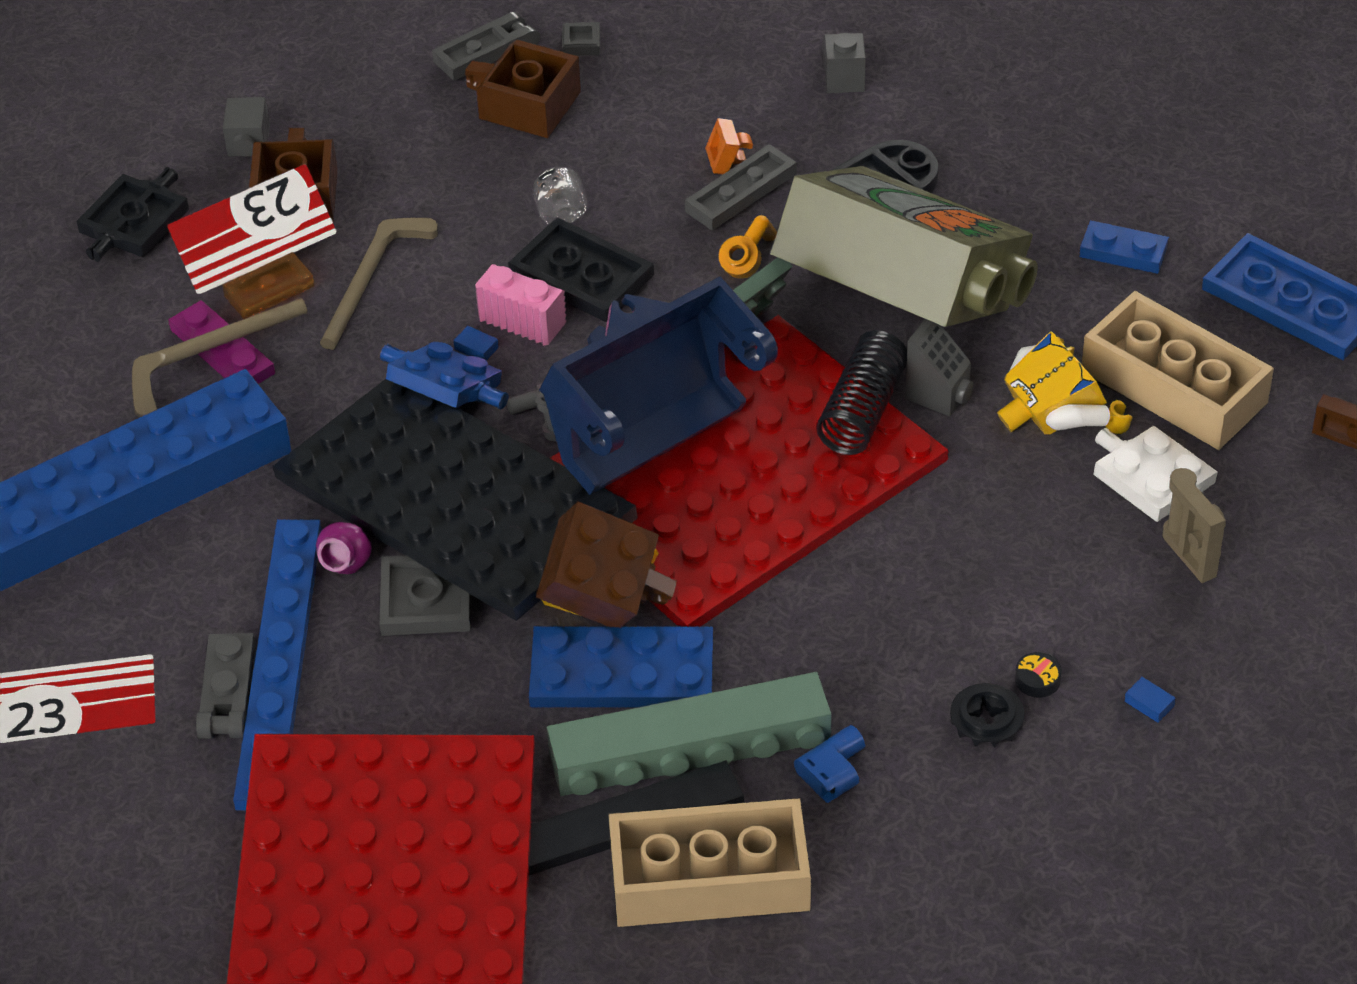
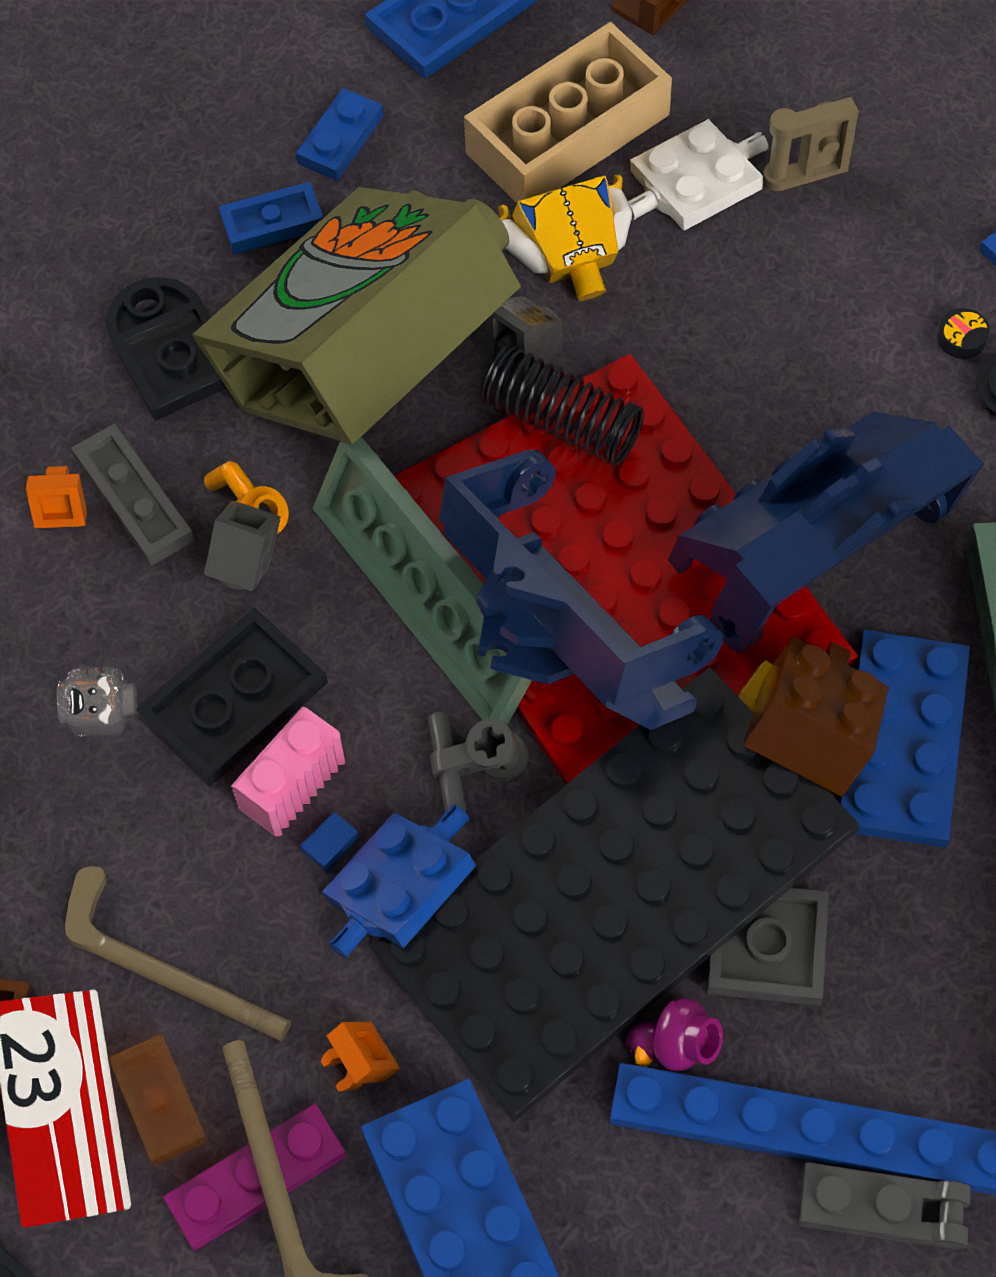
camera: 80 degrees left, 15 degrees up
(310, 378) = (362, 1053): none -> orange tile
(700, 243) = (241, 546): none -> dark grey brick
(792, 544) = (821, 512): none -> dark blue piece
(1018, 209) = (270, 217): none -> blue plate

